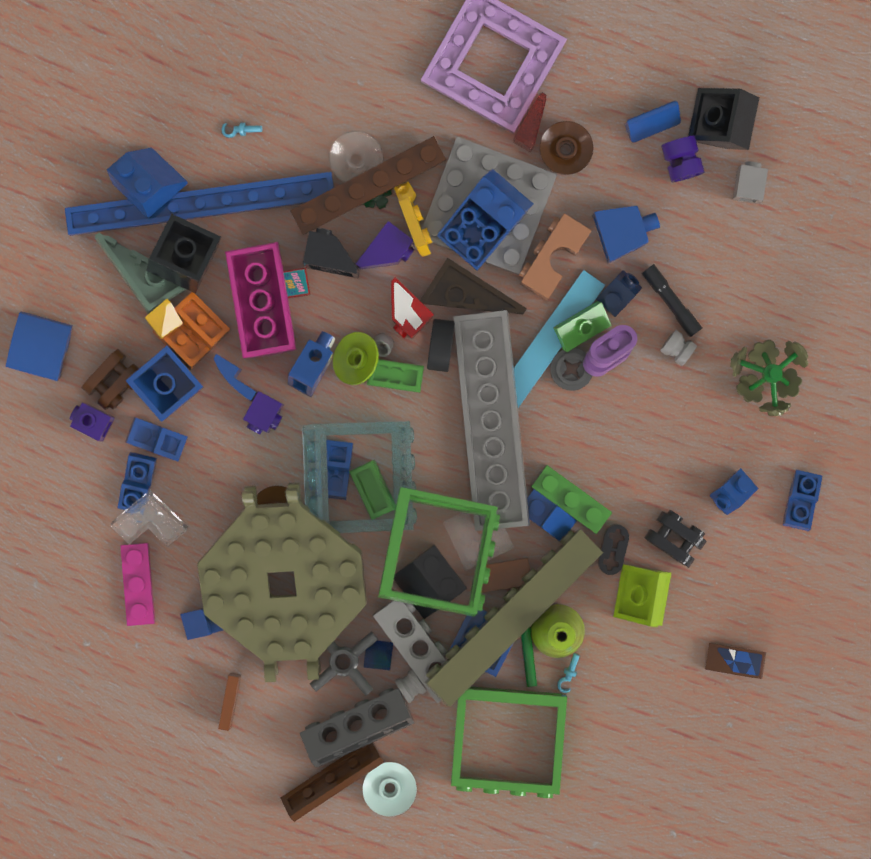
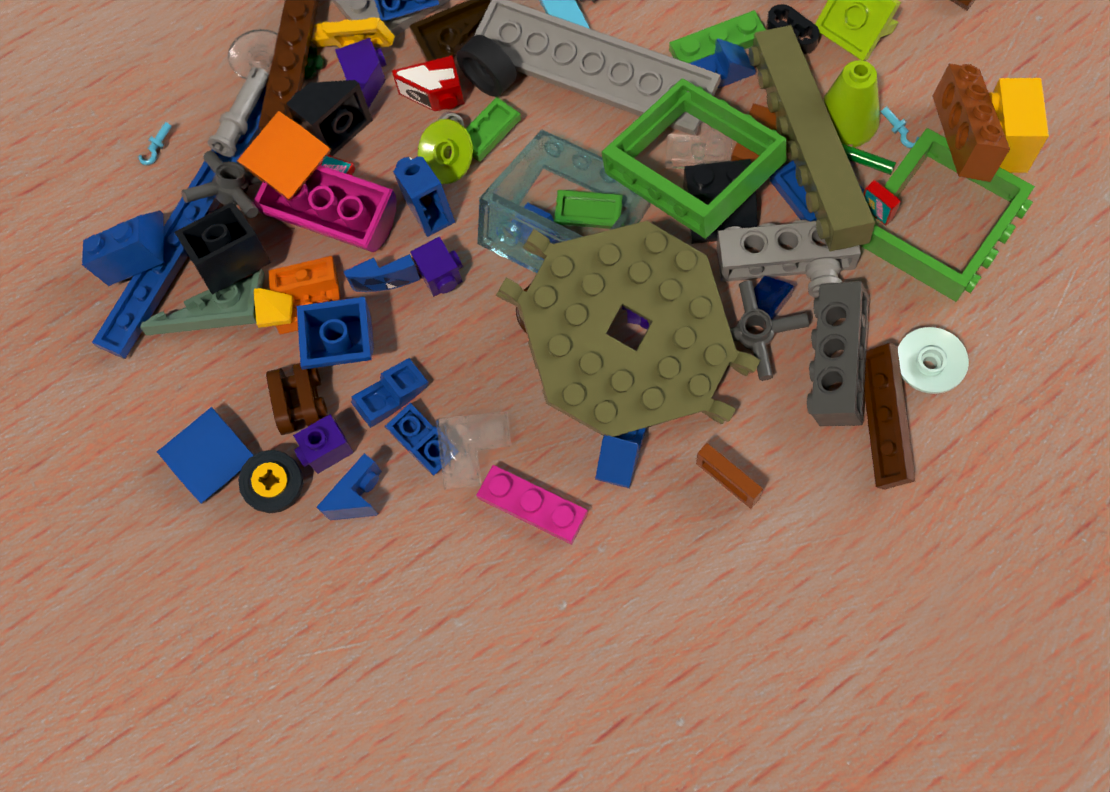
camera: 45 degrees left, 20 degrees down
(54, 397) = (283, 484): none -> black wheel
(65, 465) = (345, 498): none -> blue slope
(224, 223) = (228, 185): none -> dark grey bar
(271, 255) = (284, 155): none -> orange slope
(284, 188) = (234, 123): none -> light grey pin
(477, 699) = (881, 202): none -> tile
(582, 726) = (970, 122): none -> dark orange brick
(602, 755) = (1023, 120): none -> yellow brick

